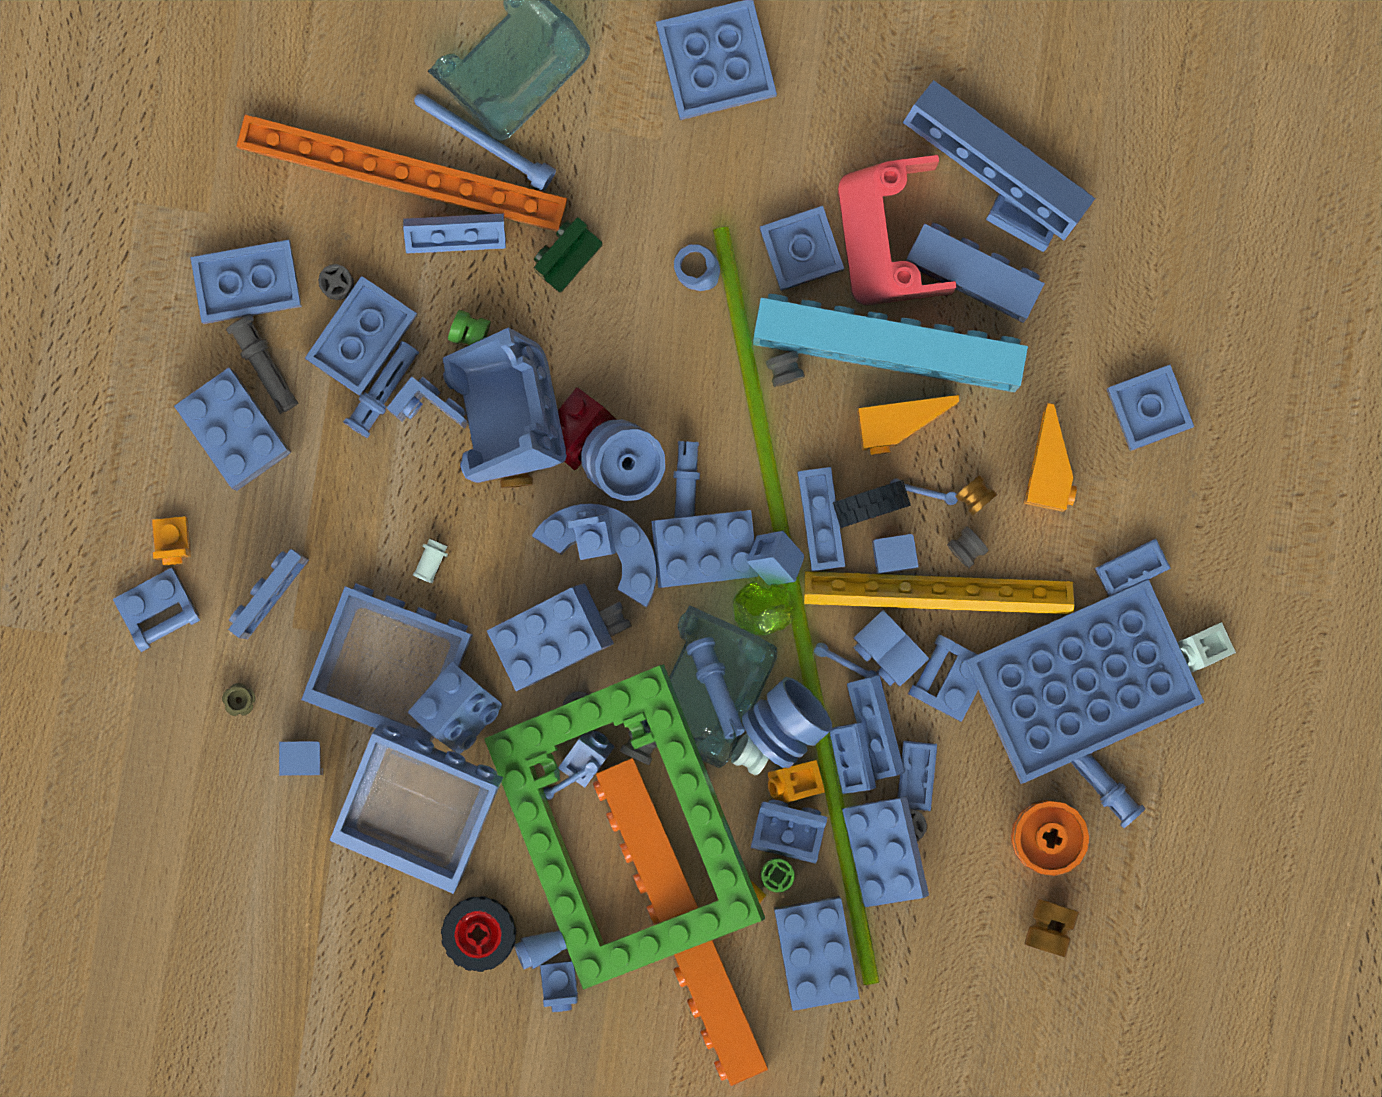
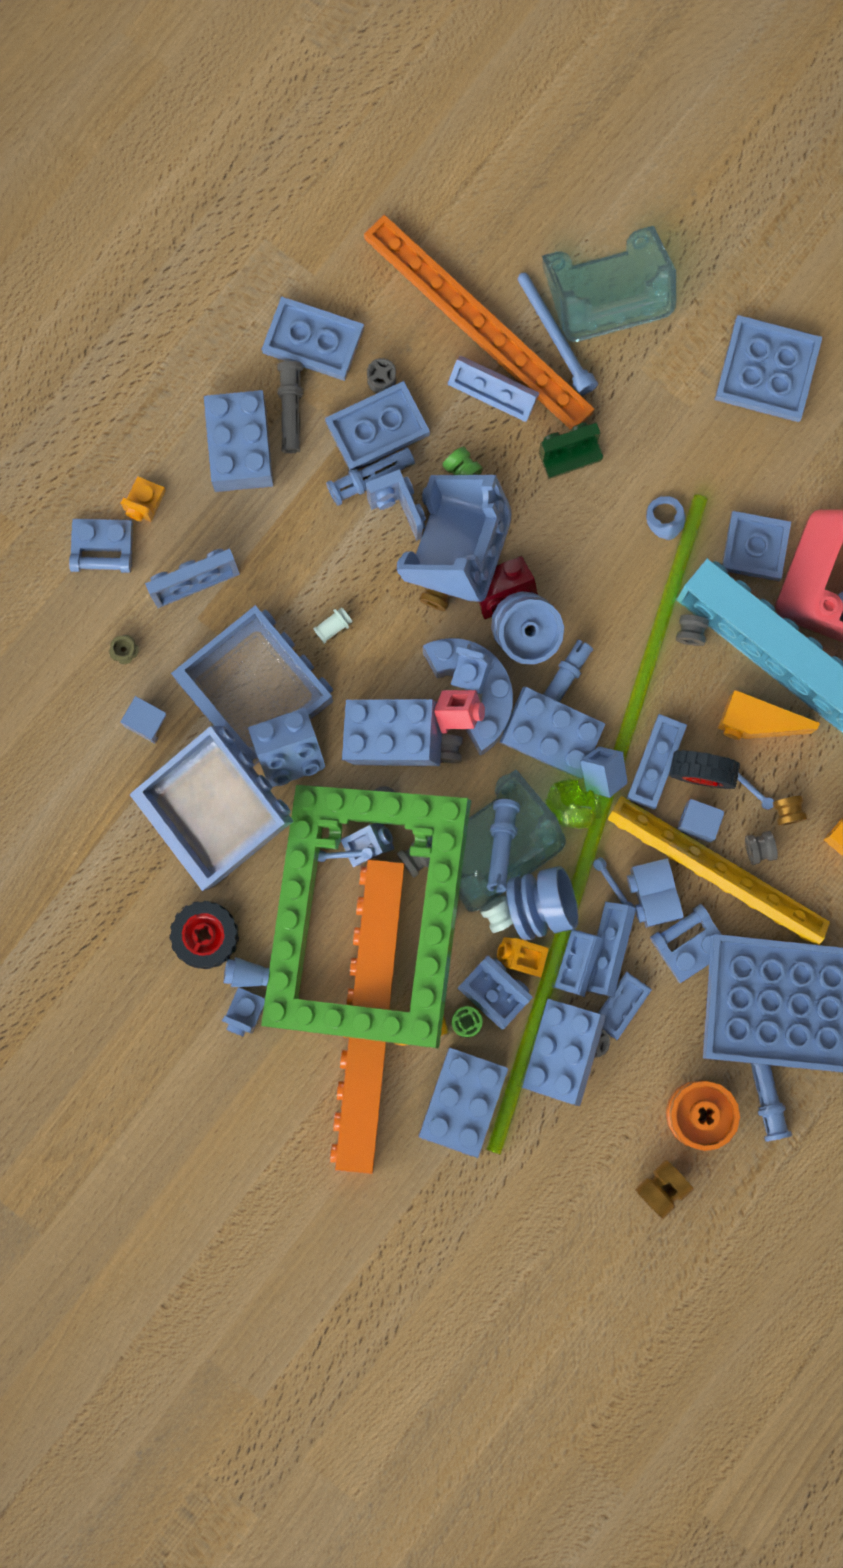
camera: 25 degrees right, 5 degrees down
(602, 581) = (458, 710): none -> coral brick

